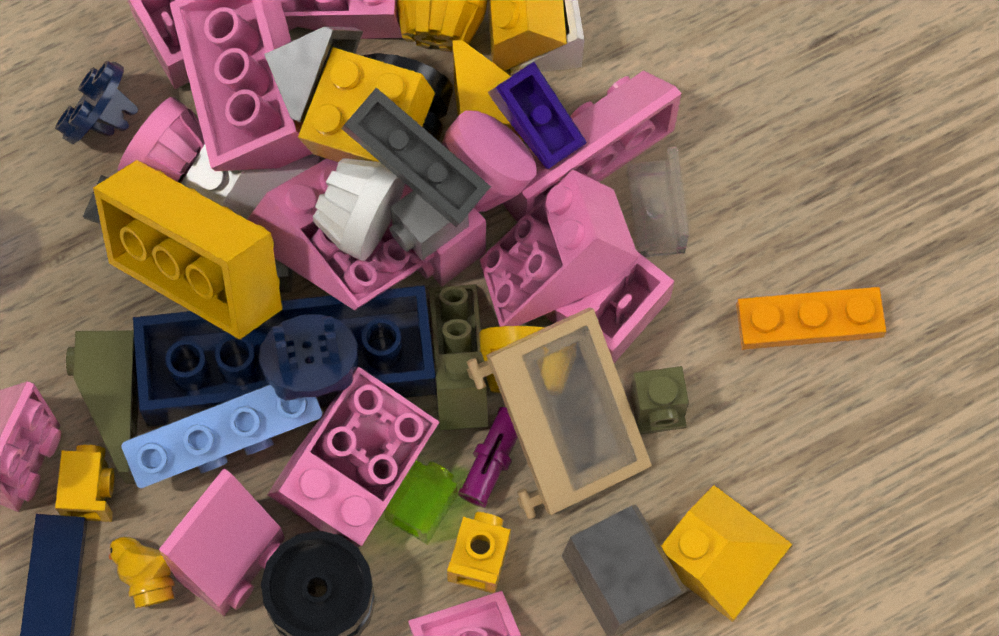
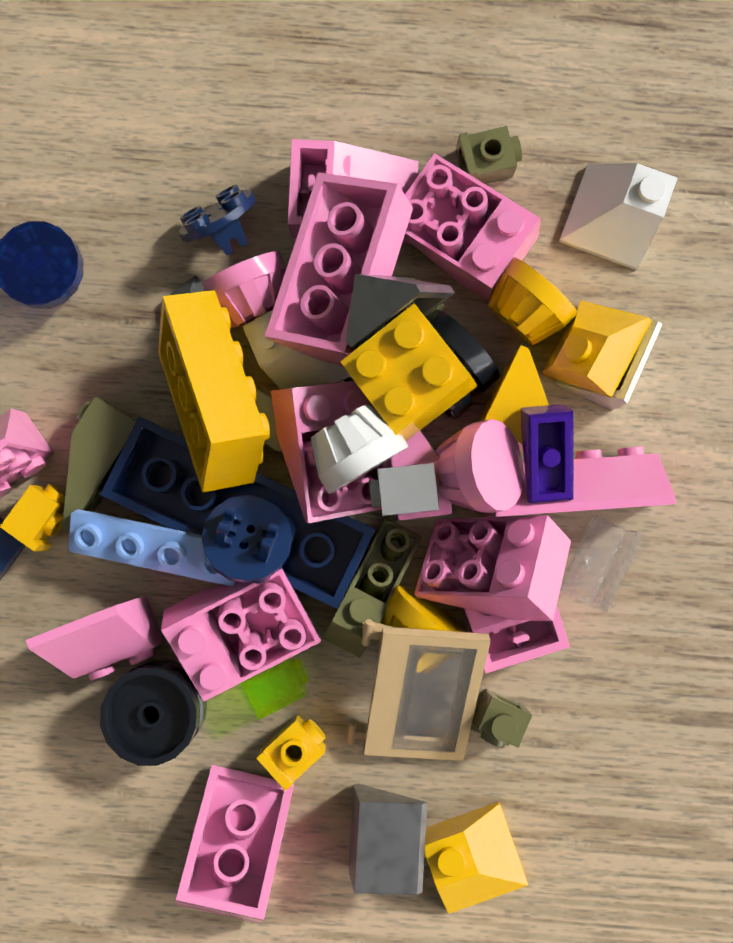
camera: 35 degrees right, 15 degrees up
(143, 571) = (42, 606): yellow animal -> none
(416, 157) = (419, 448): dark grey plate -> none
(480, 485) = (324, 698): magenta pin -> none
(810, 318) = (657, 722): light orange plate -> none

